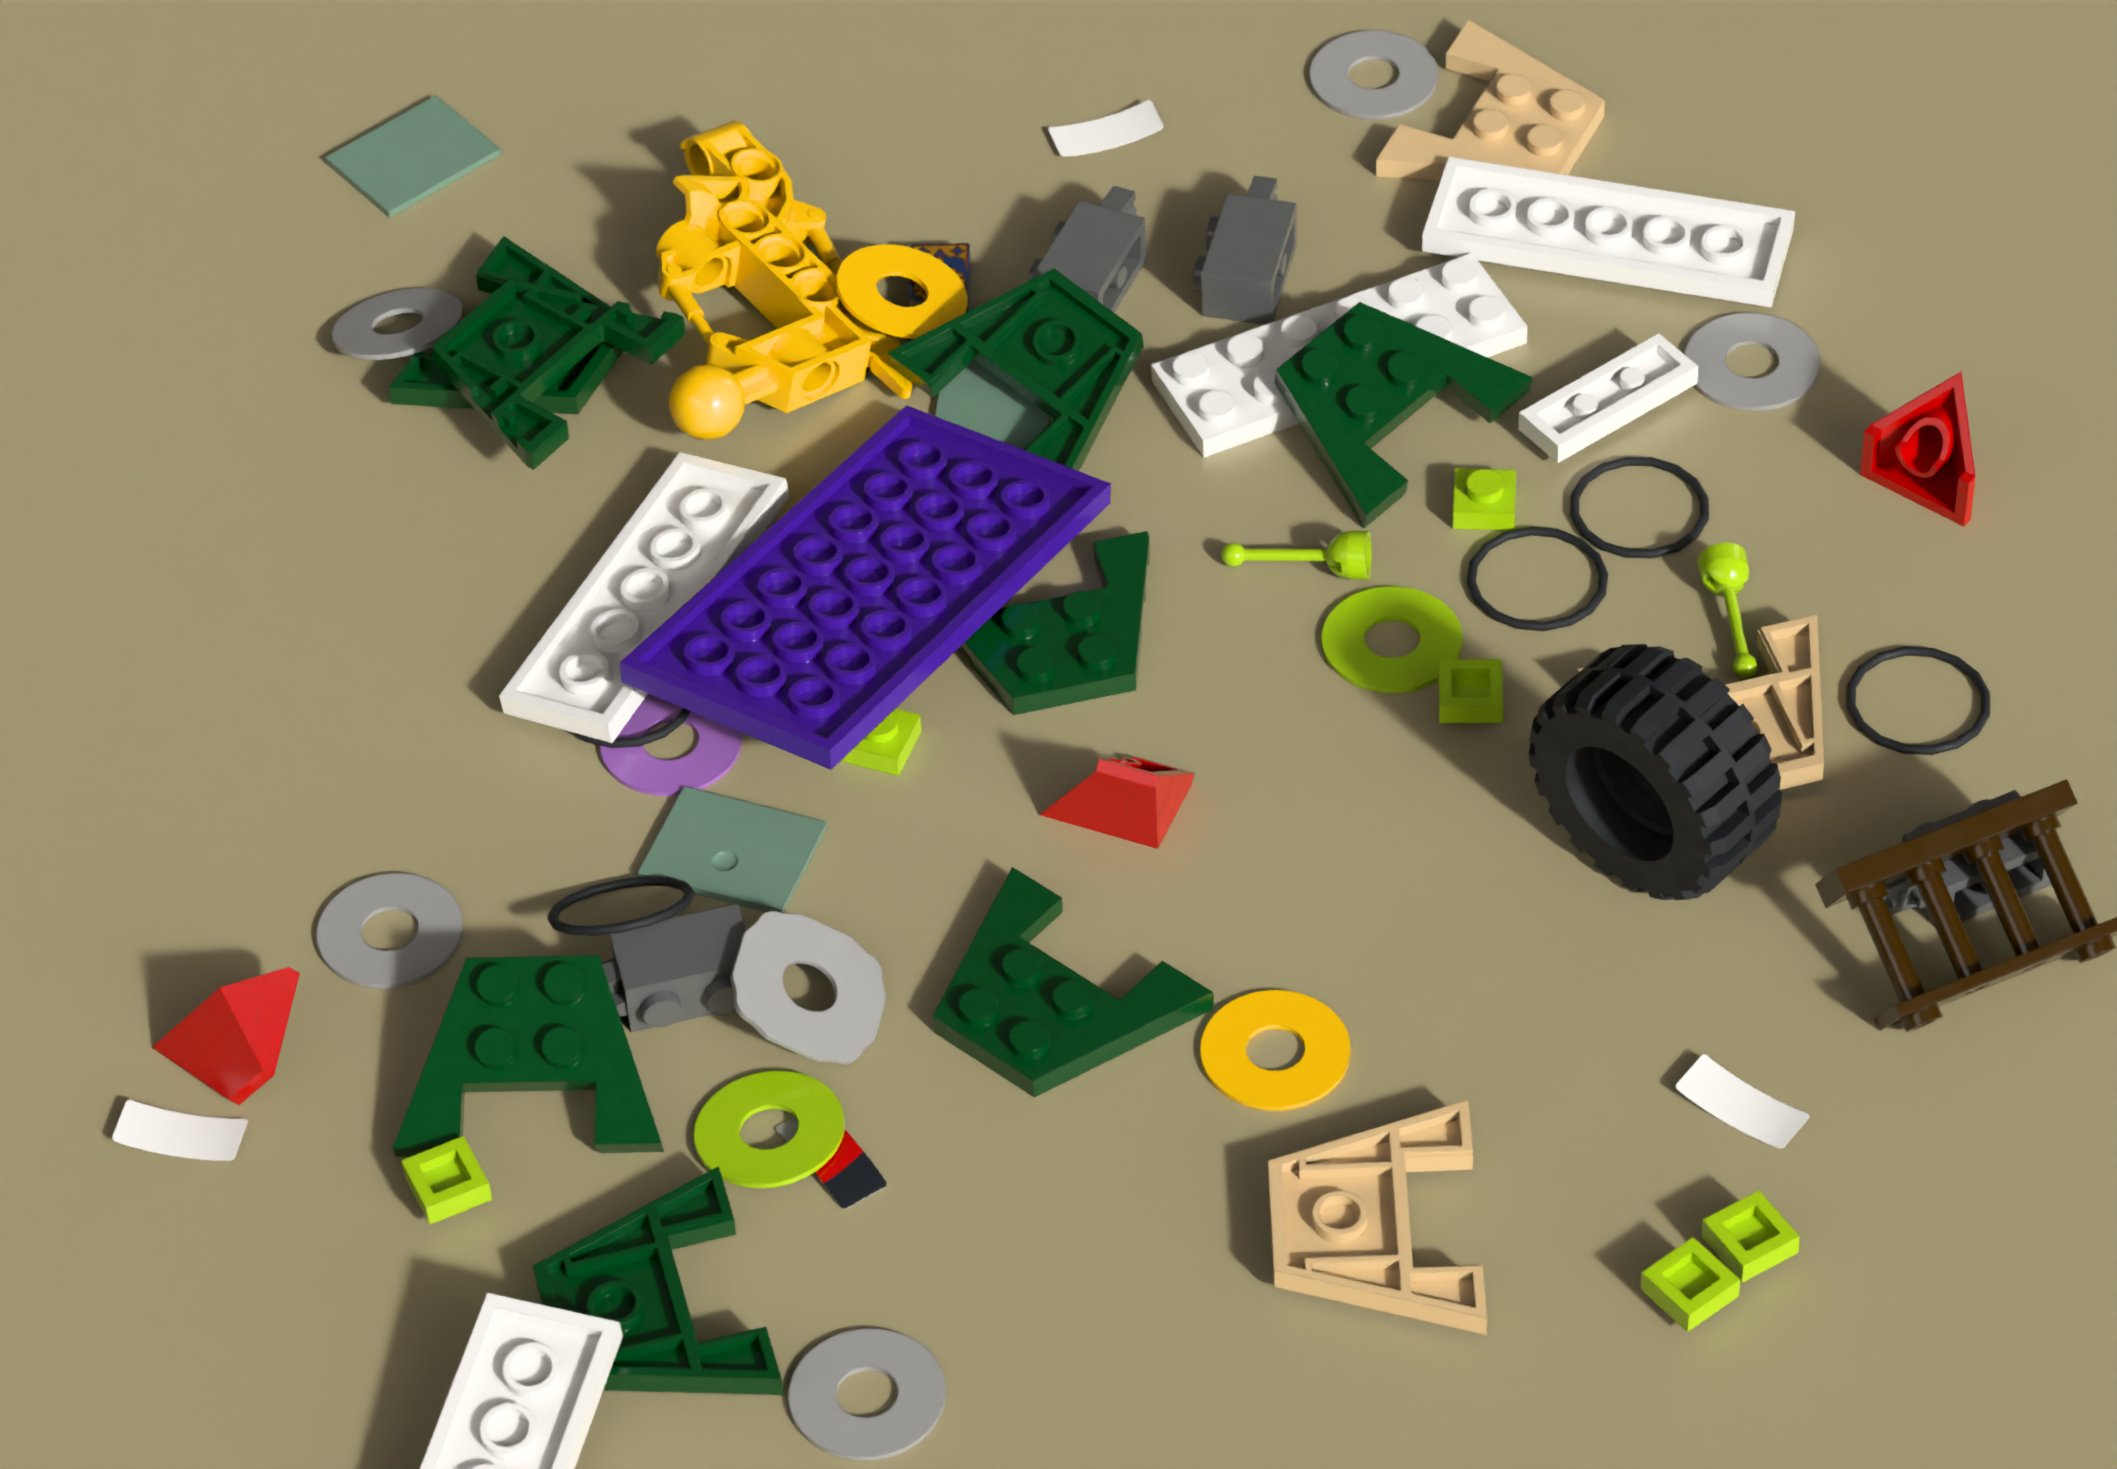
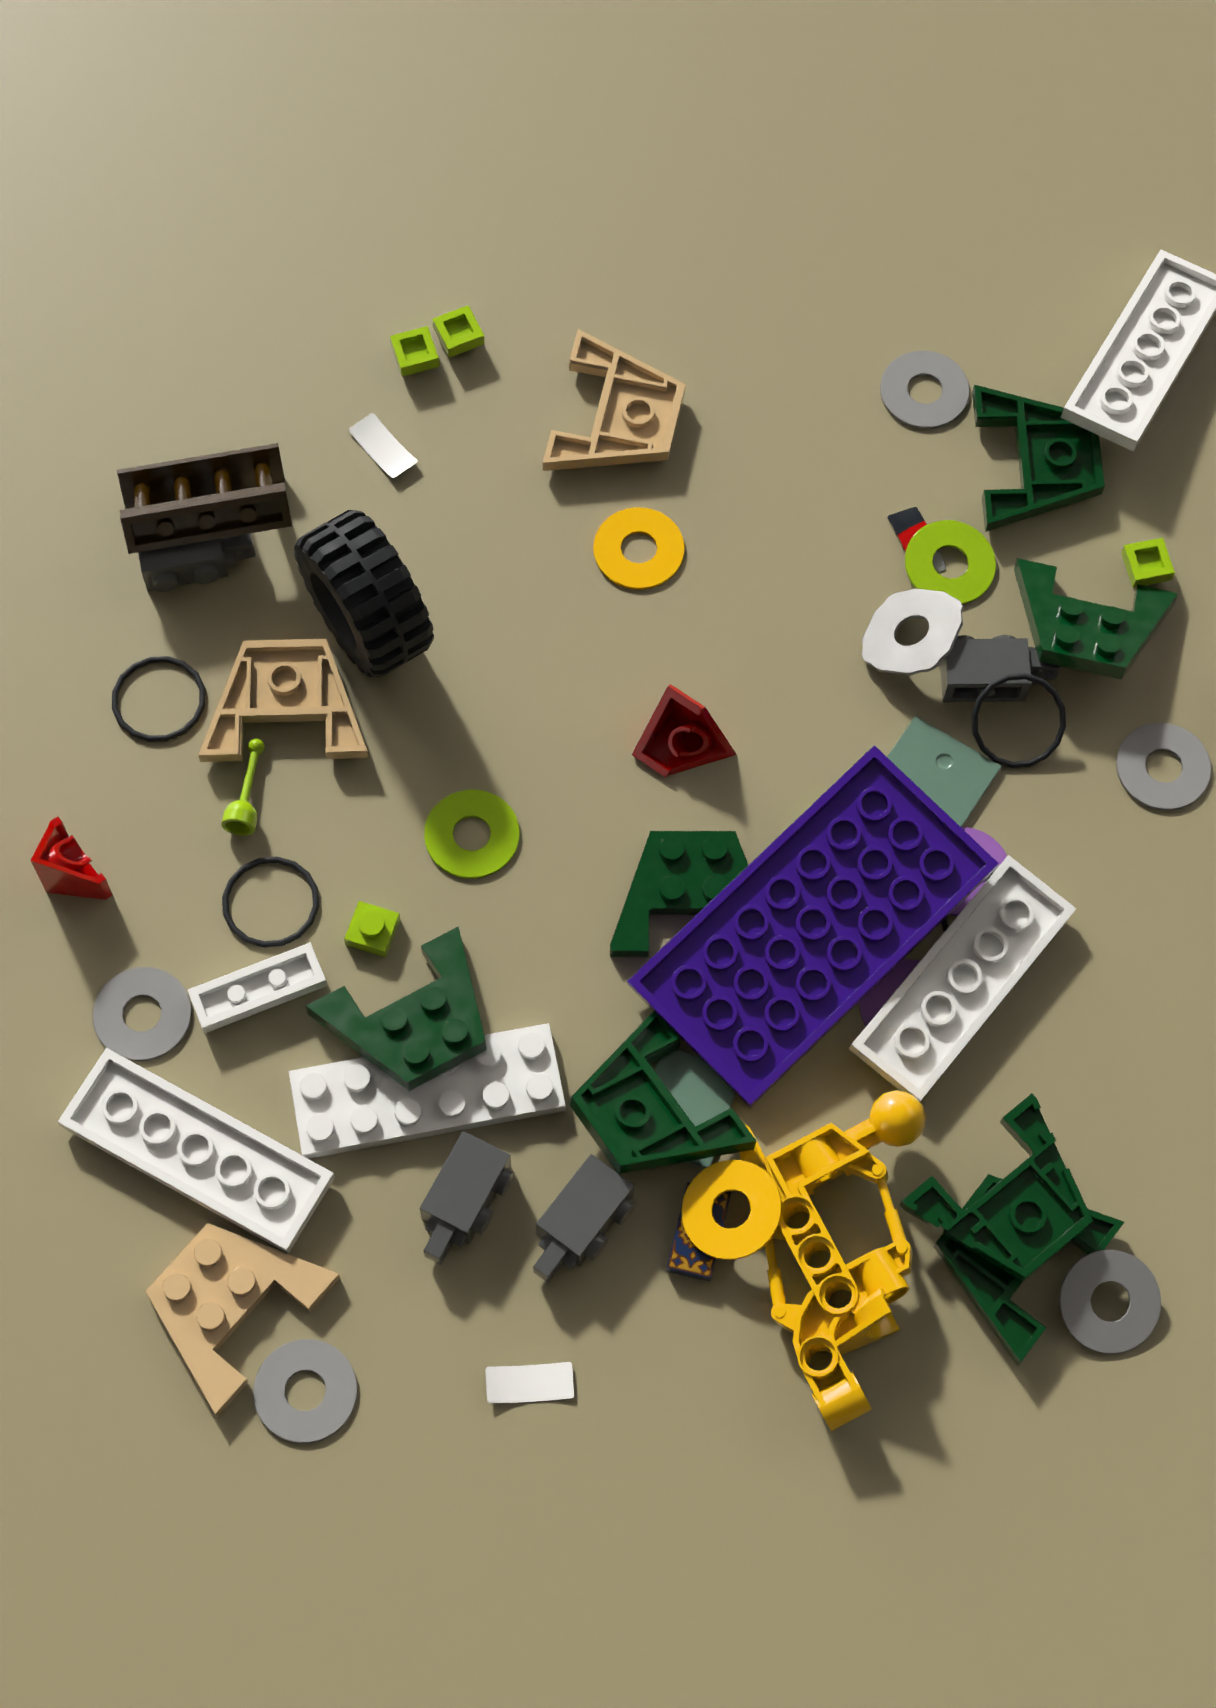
camera: 170 degrees left, 20 degrees up
(412, 156) = (1078, 1508): sand green piece -> none
(1039, 1017) = (777, 601): dark green wing -> none
(1346, 555) = (482, 896): lime hinge -> none
(1470, 690) = (439, 761): lime plate -> none
(1535, 625) = (360, 817): black piece -> none

